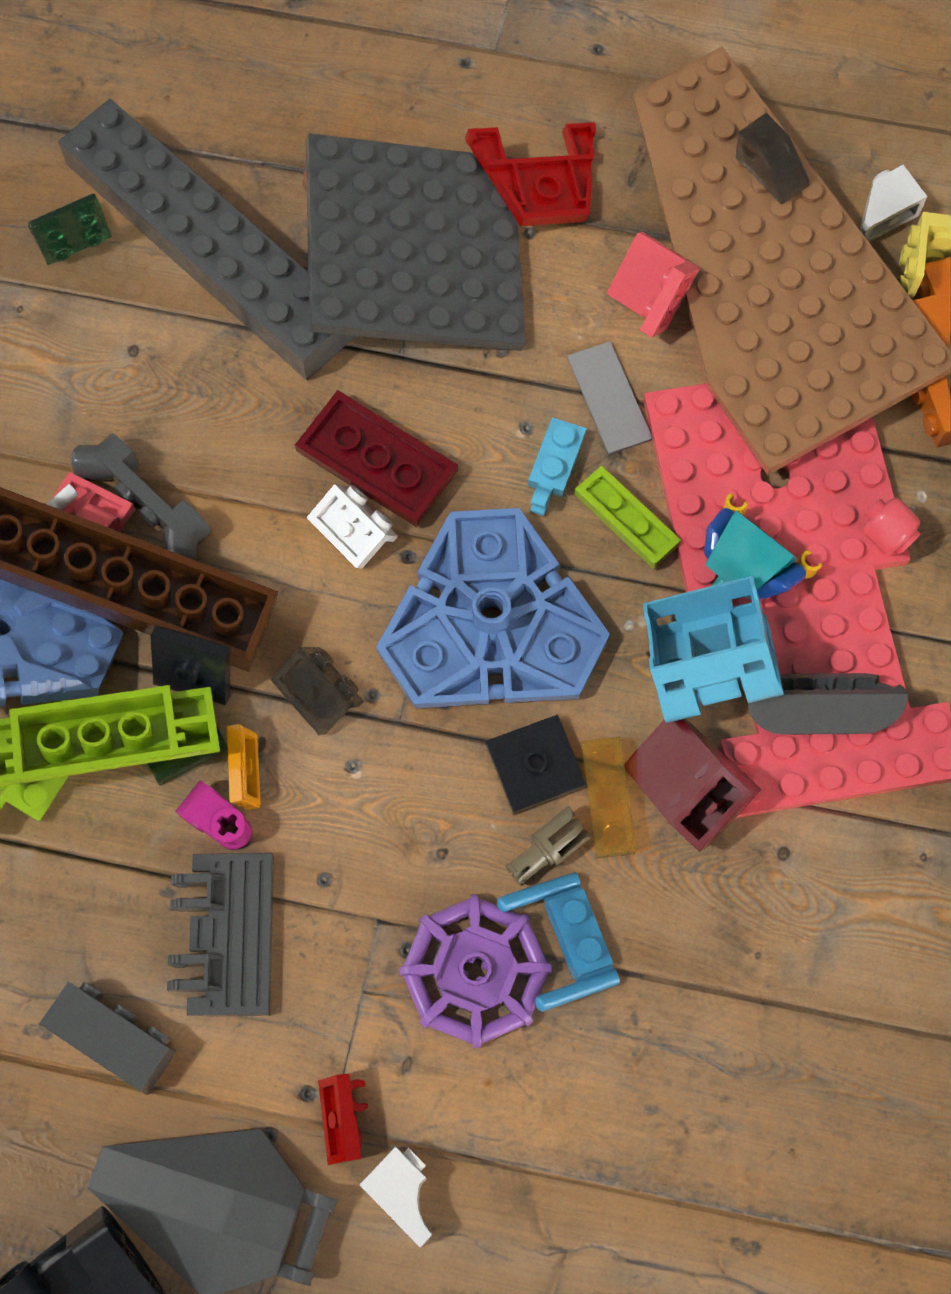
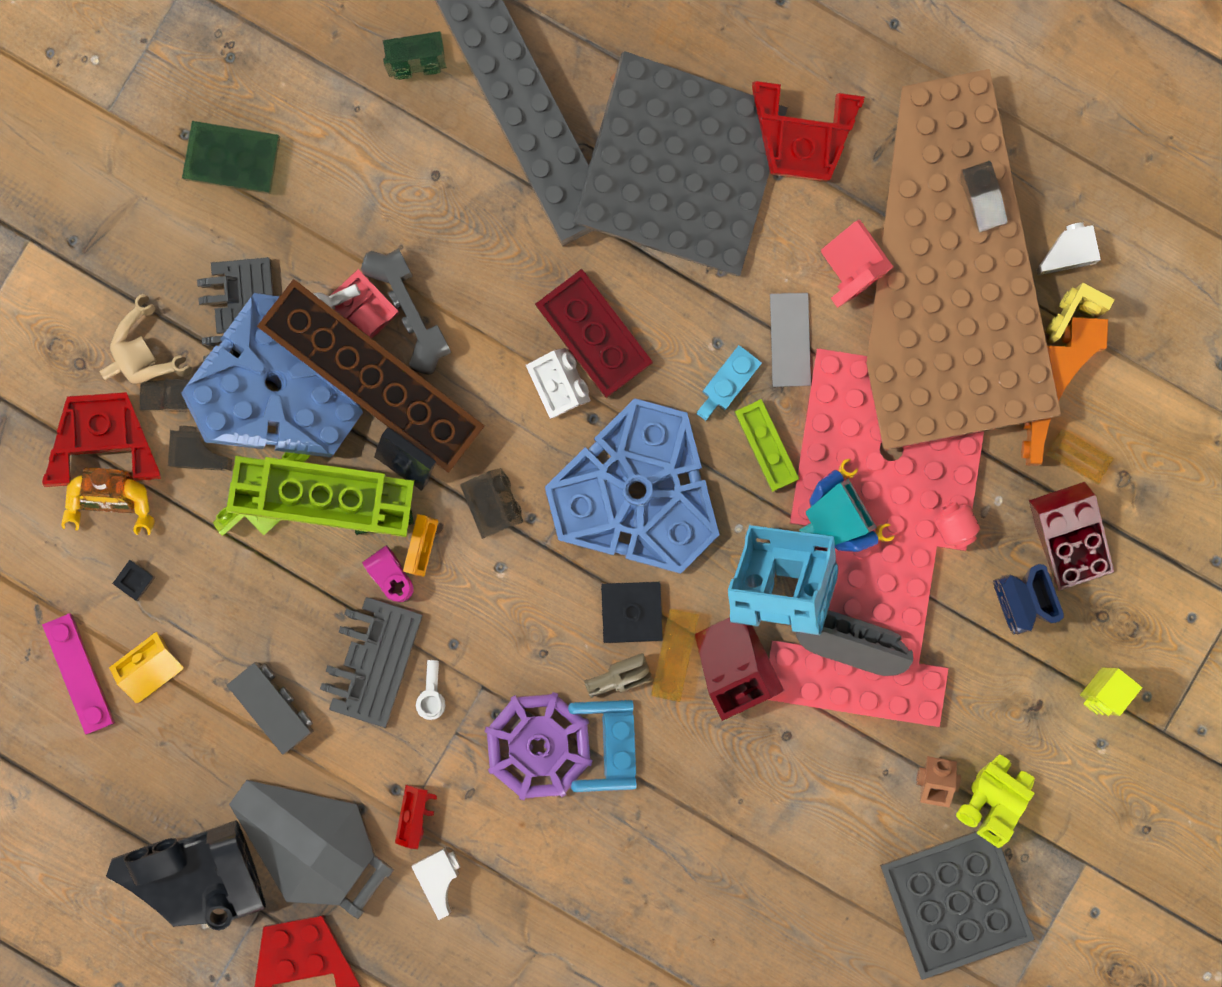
camera: 25 degrees right, 15 degrees up
(317, 962) = (430, 703): none -> white plate

